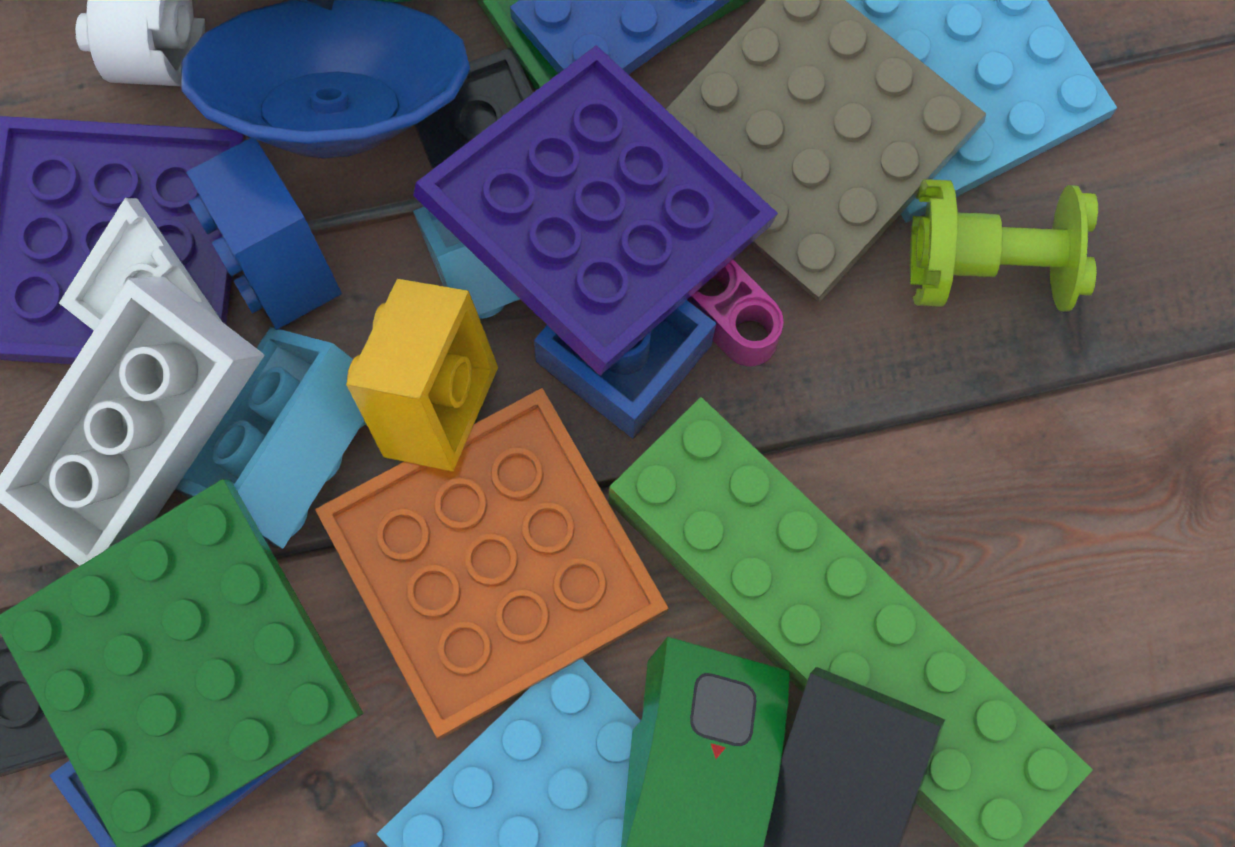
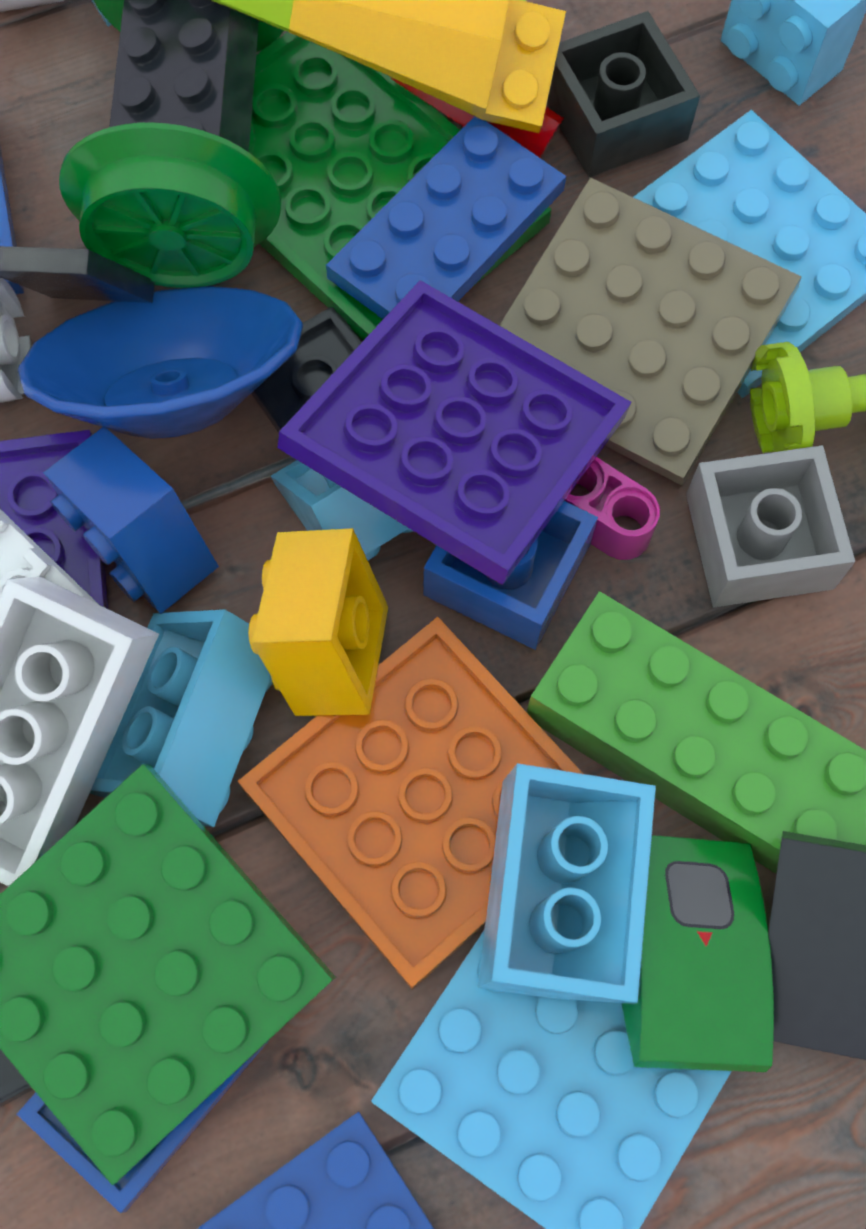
camera: 10 degrees left, 5 degrees down
(599, 675) = (568, 886): none -> medium azure slope
(889, 363) = (769, 526): none -> light grey brick

